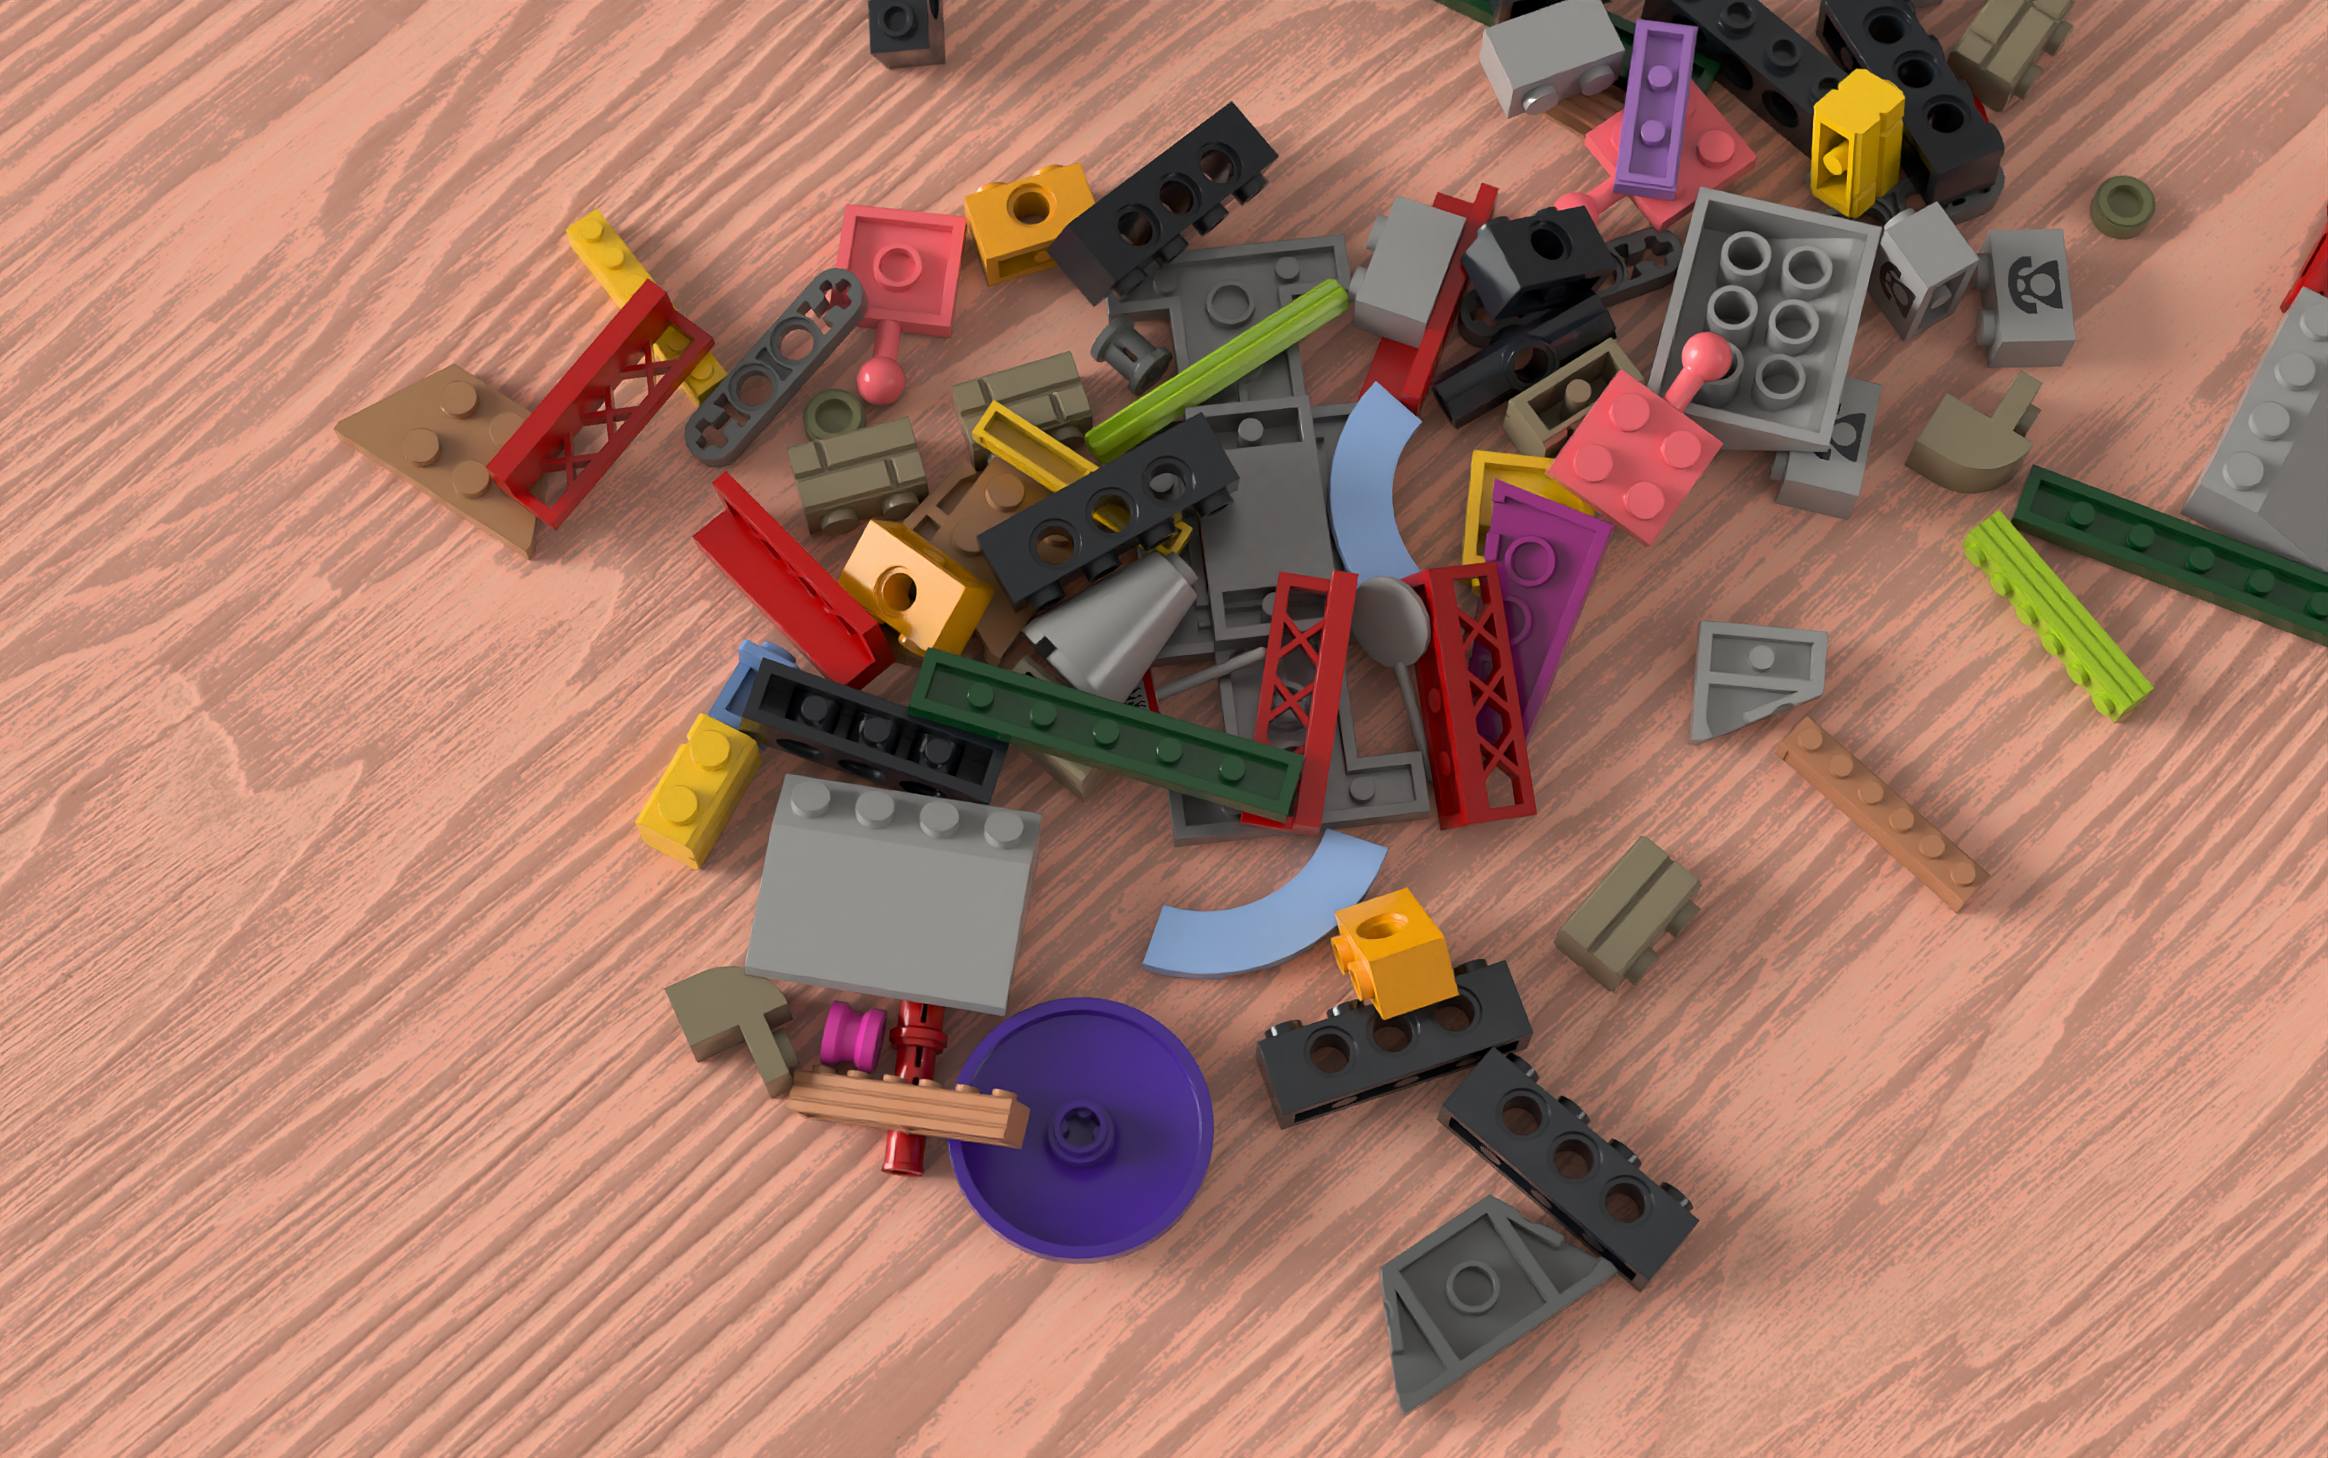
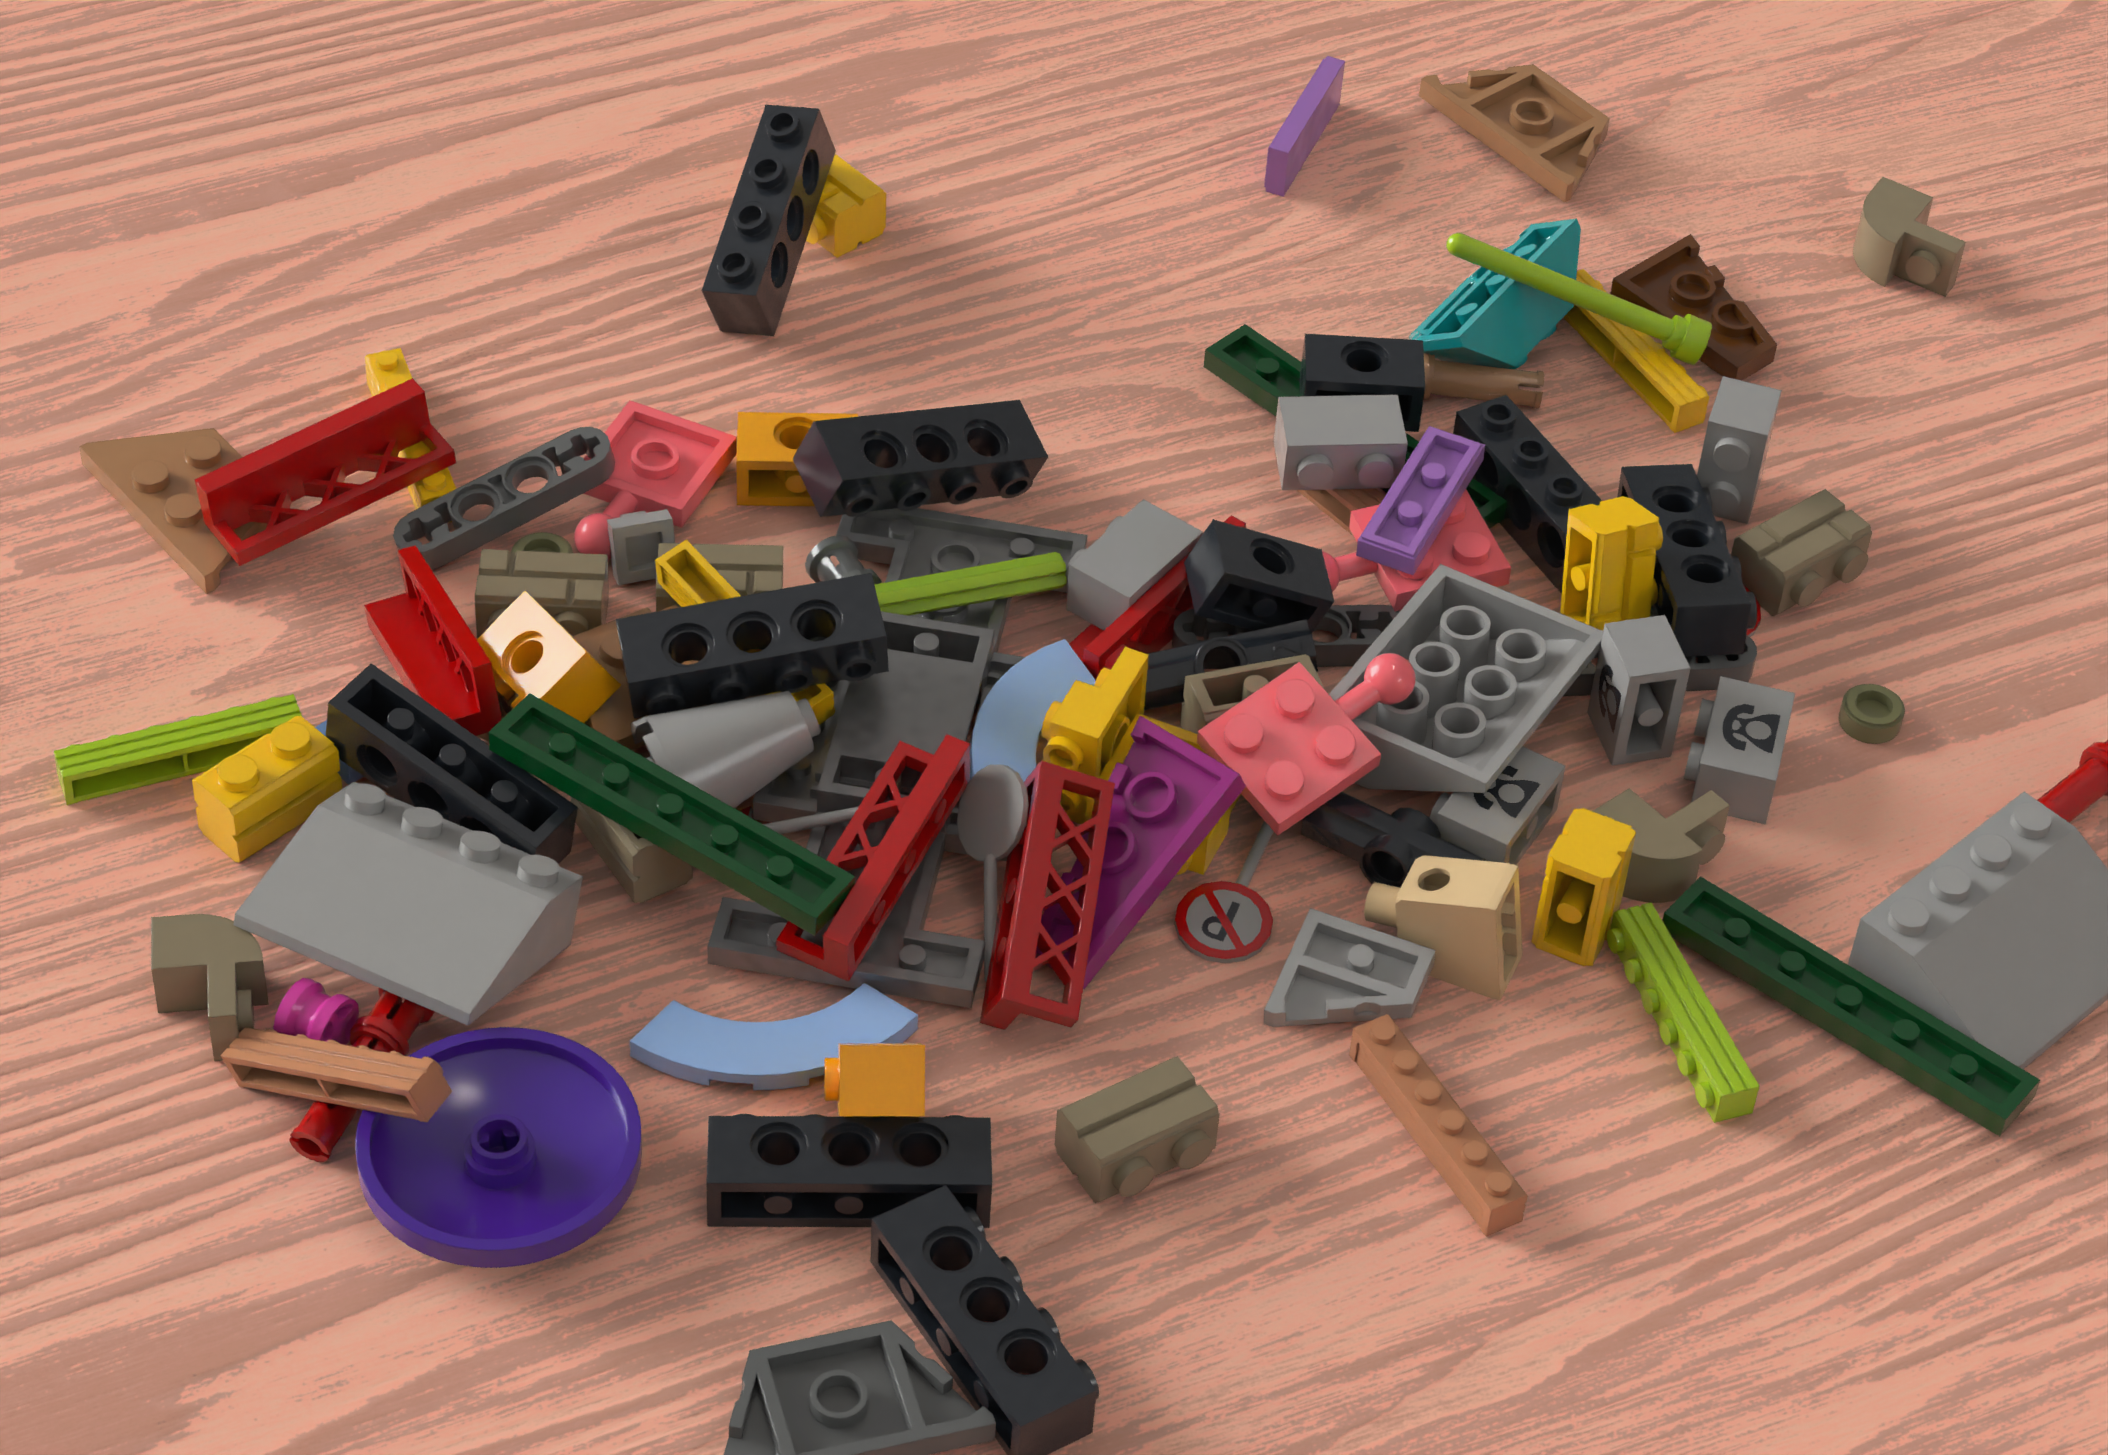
camera: 15 degrees right, 25 degrees down
(591, 762) = (166, 750): none -> lime piece
(926, 379) = (635, 544): none -> light grey tile
(1440, 503) = (1093, 721): none -> yellow plate
(1616, 637) = (1227, 918): none -> piece
(1760, 519) = (1378, 841): none -> black piece
(1833, 591) = (1463, 913): none -> tan torso
(1942, 521) = (1583, 886): none -> yellow brick

